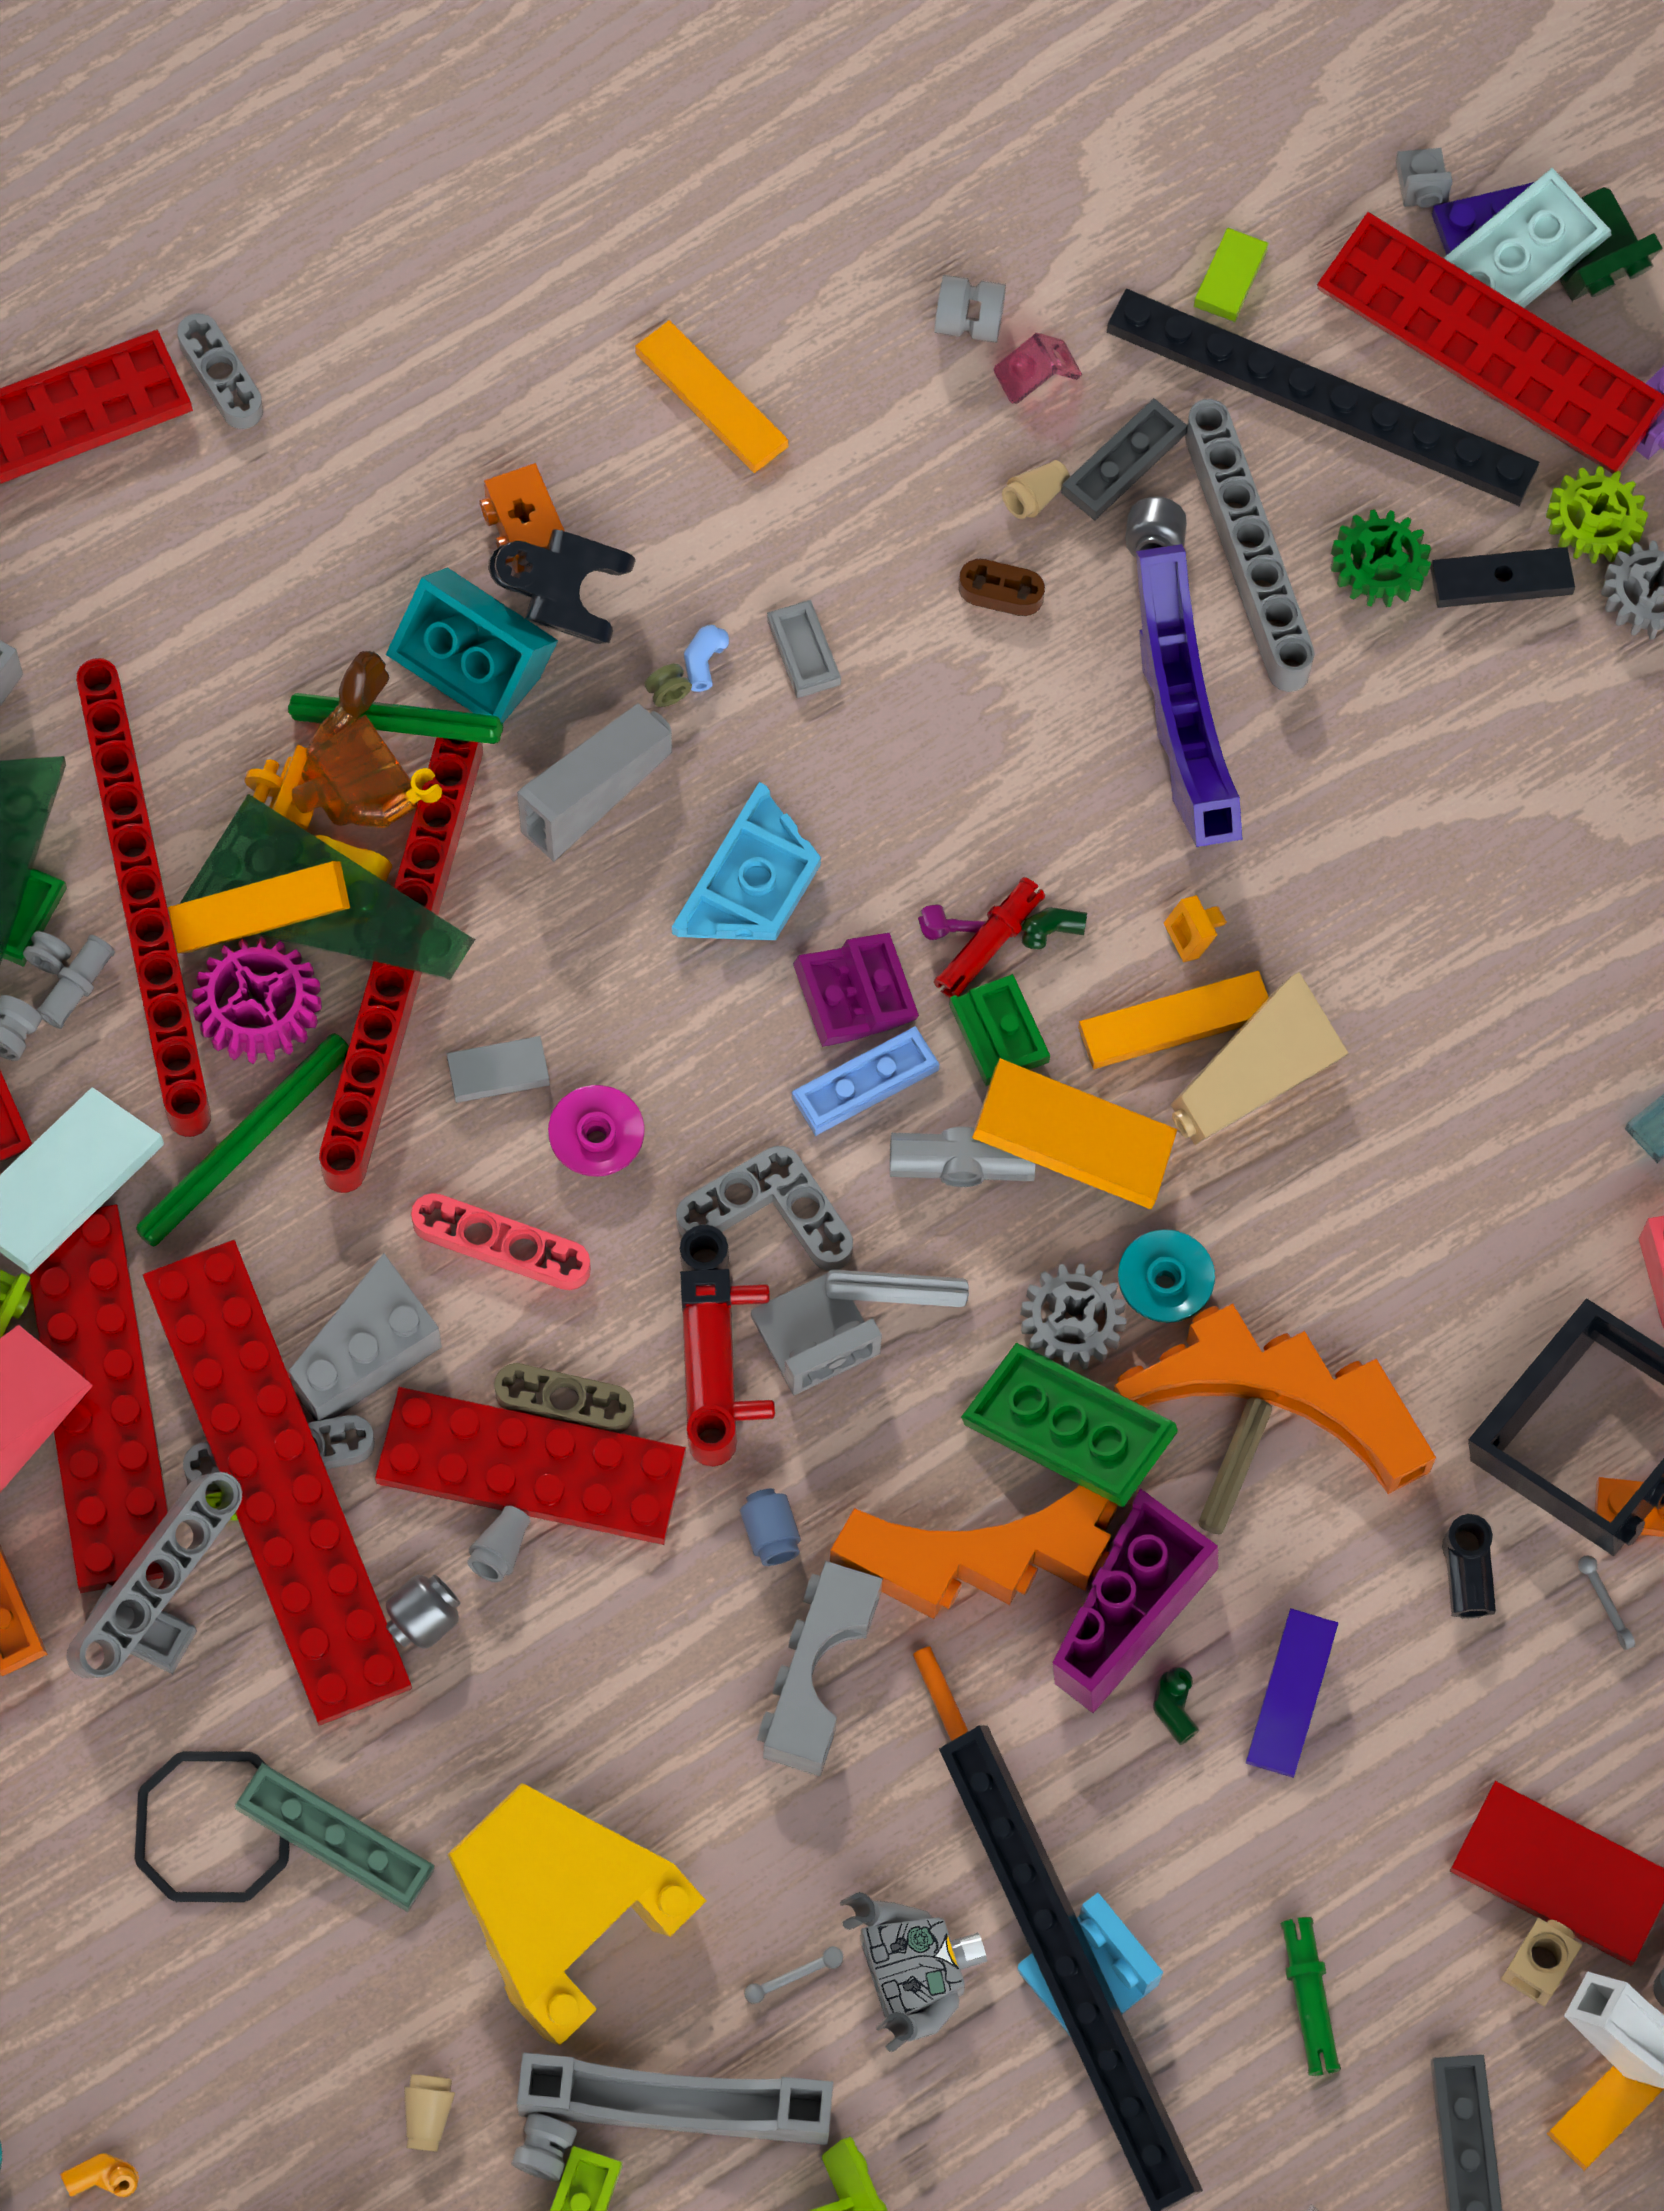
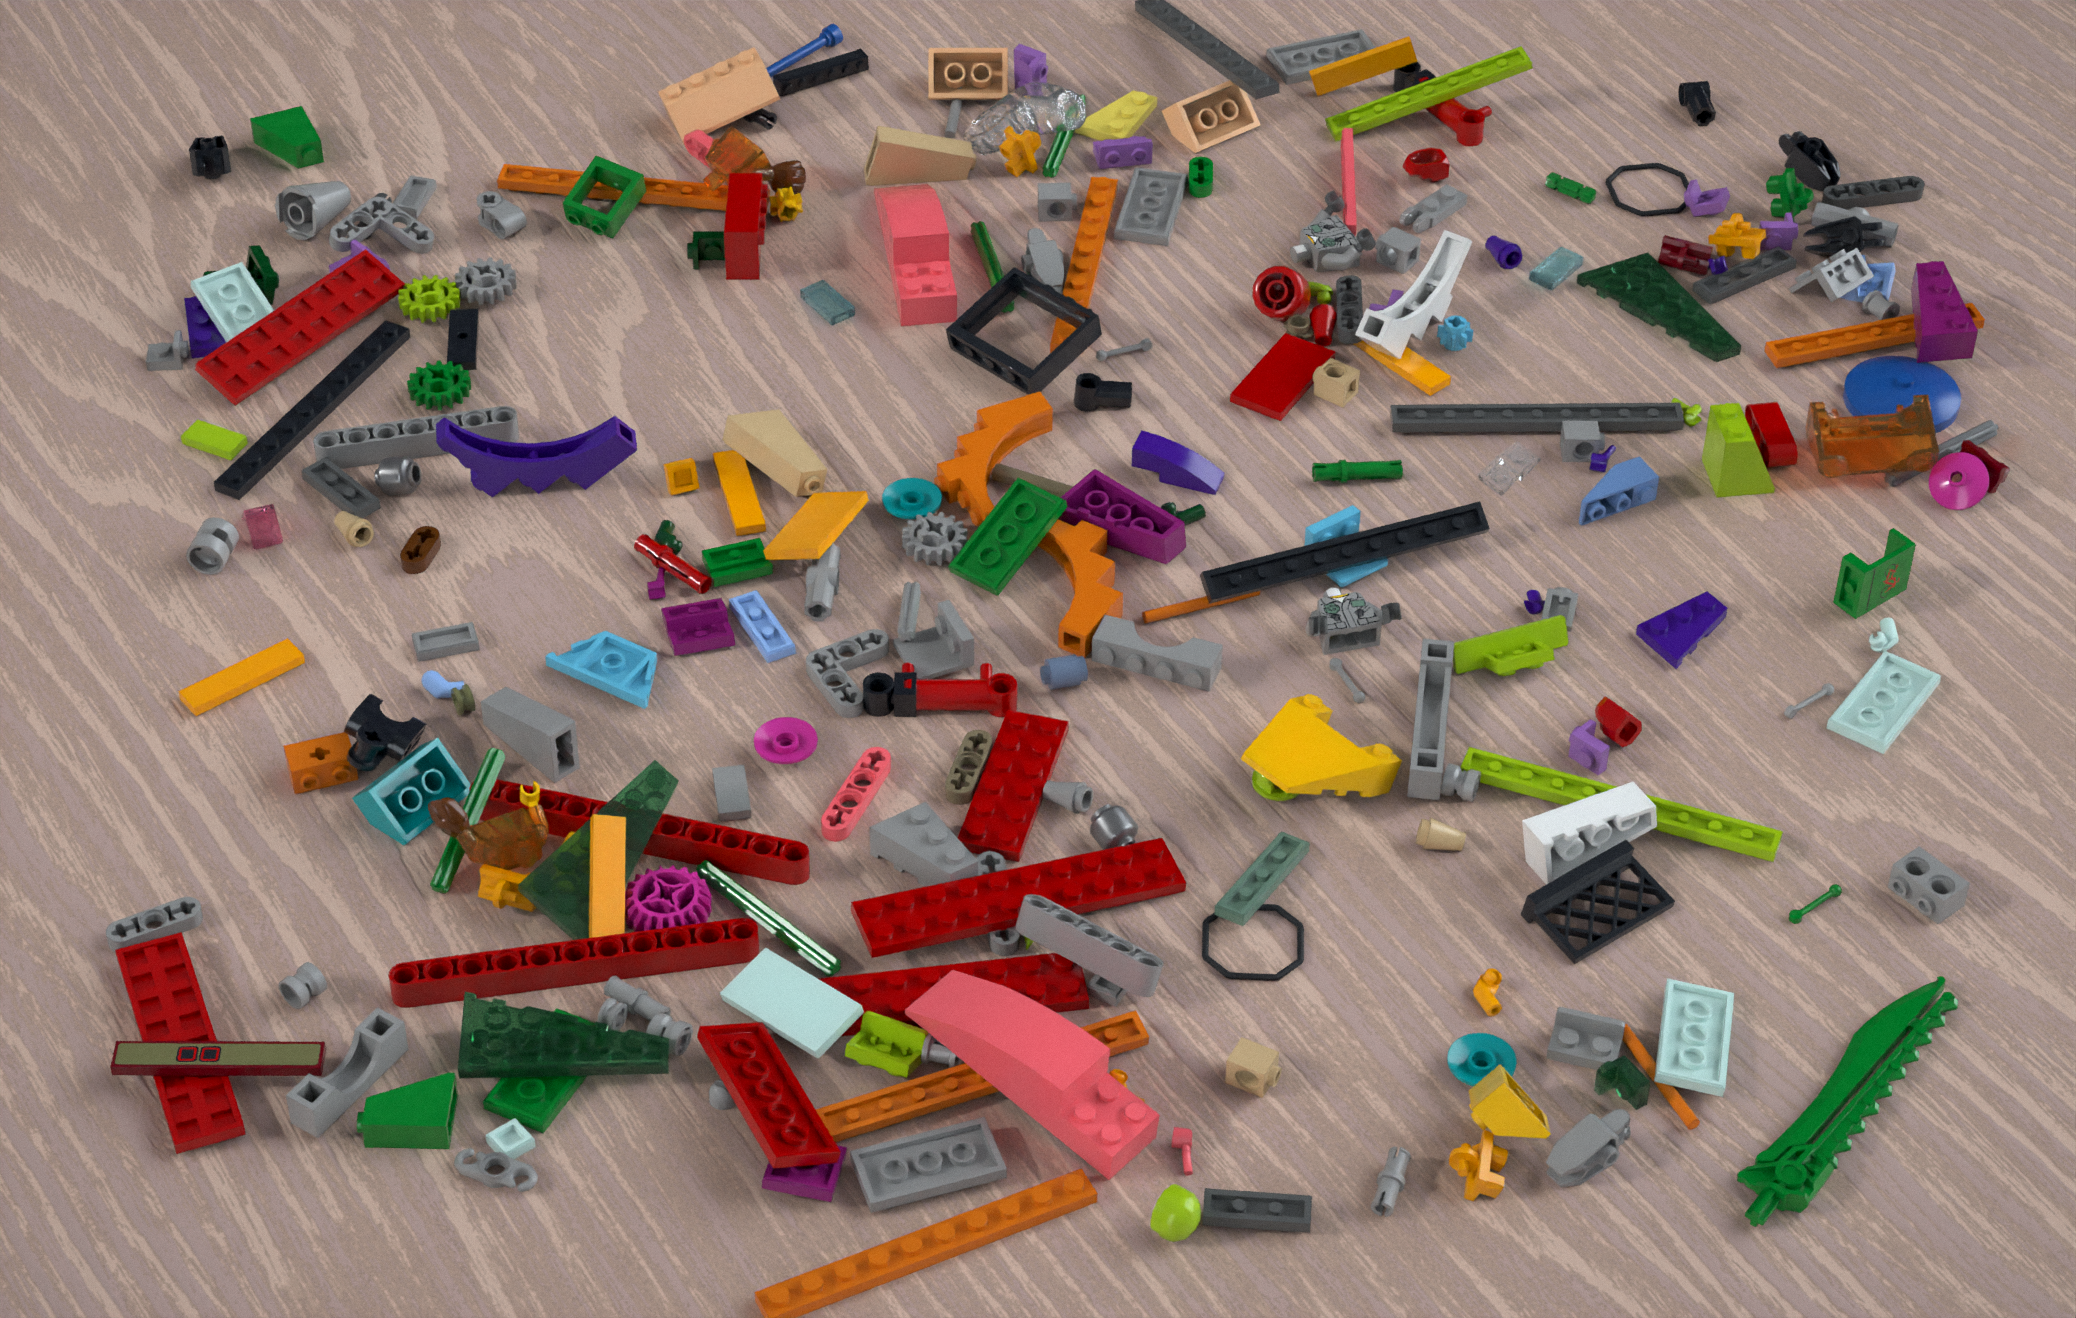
camera: 85 degrees left, 25 degrees down
(100, 564) = (303, 985): none -> light grey wheel

